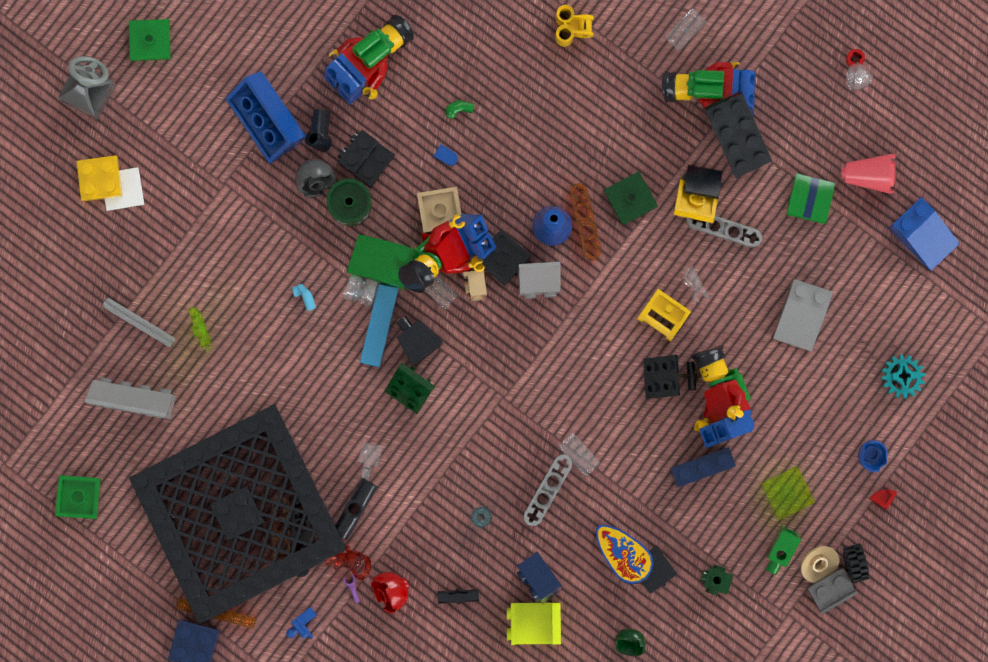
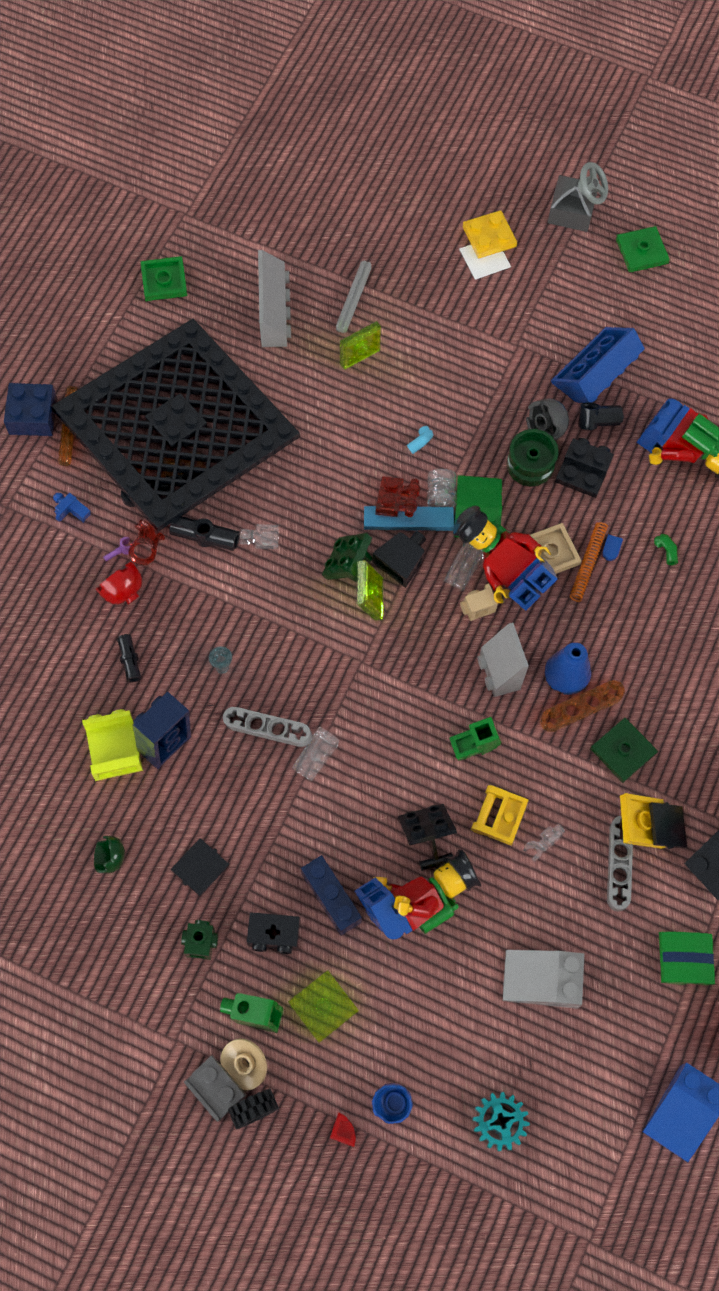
camera: 80 degrees right, 15 degrees down
(356, 337) = (390, 494): none -> clear red plate
(446, 375) = (370, 590): none -> clear neon green plate
(459, 183) = (585, 561): none -> orange piece
(505, 259) = (527, 623): black plate -> none
(599, 319) = (479, 739): none -> green brick
(624, 555) = (209, 826): shield -> none
(713, 527) = (262, 923): none -> black brick

